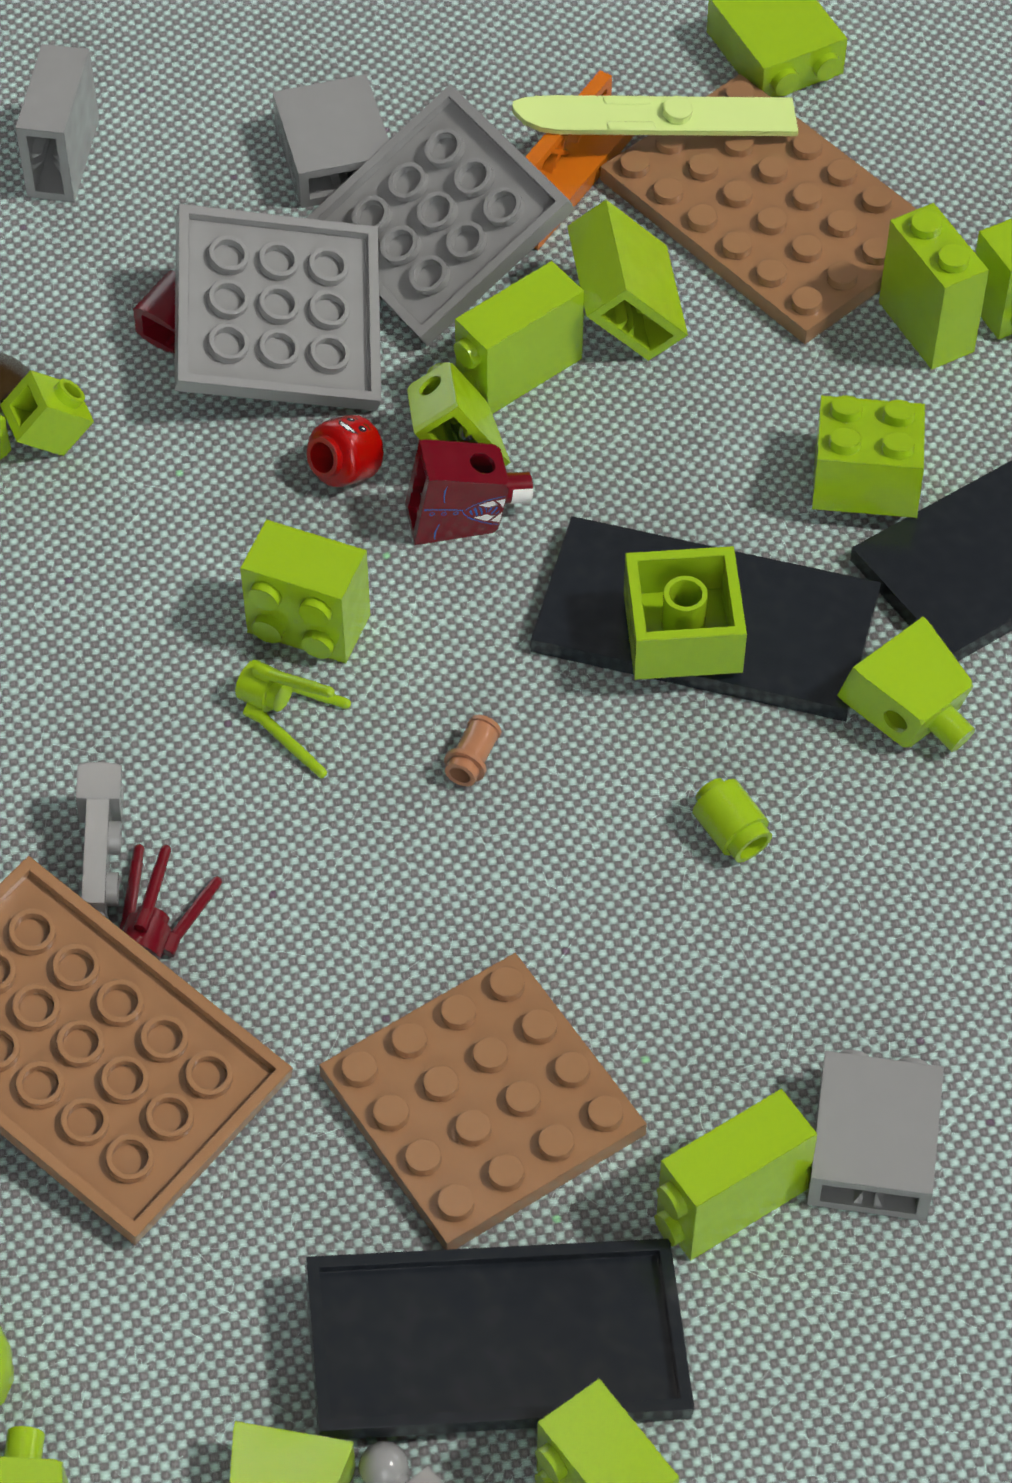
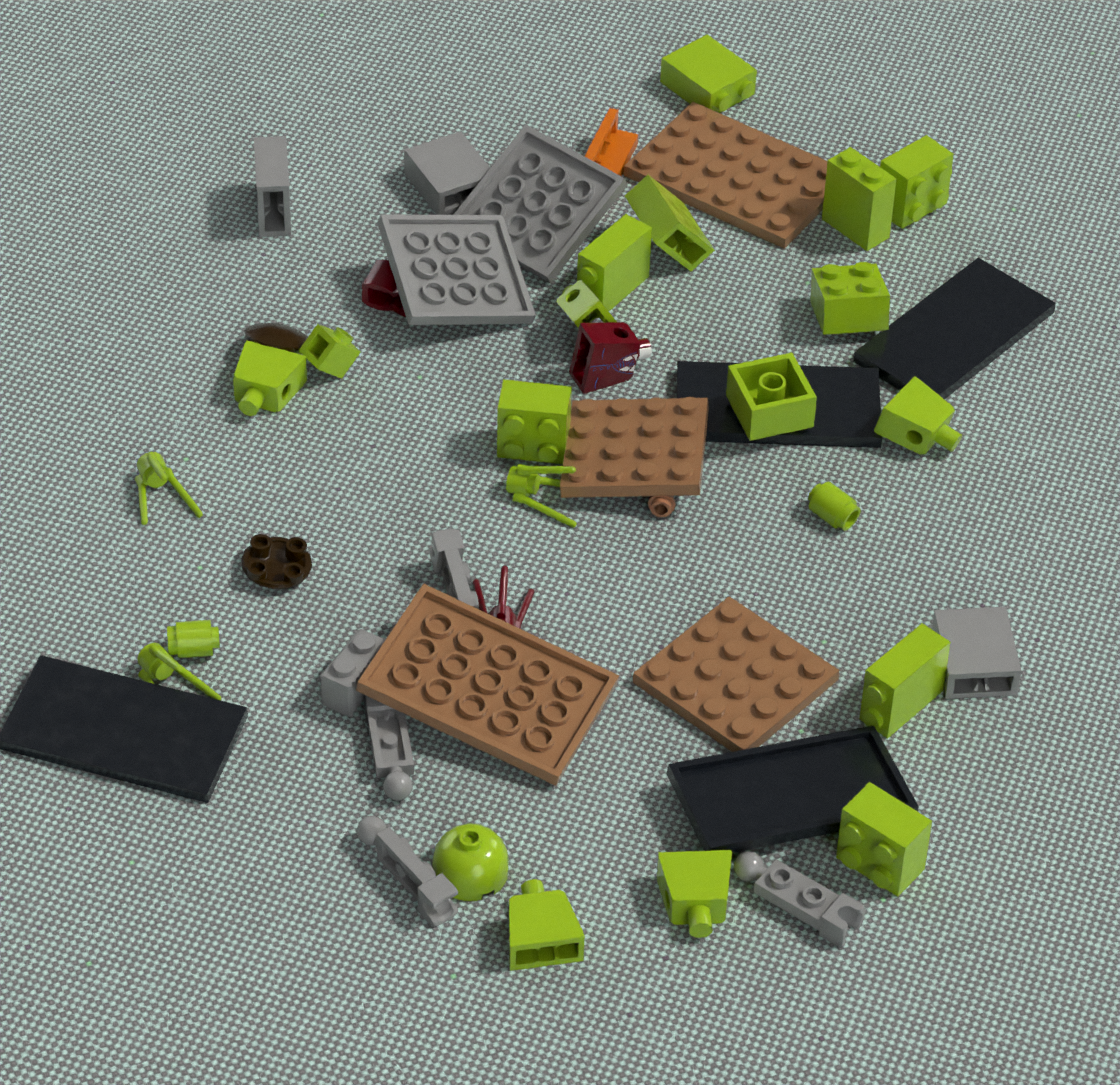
camera: 15 degrees left, 10 degrees down
(345, 451) = (525, 345): red head -> none
(453, 661) = (635, 447): none -> medium nougat plate
(658, 115) = (655, 128): yellowish green piece -> none

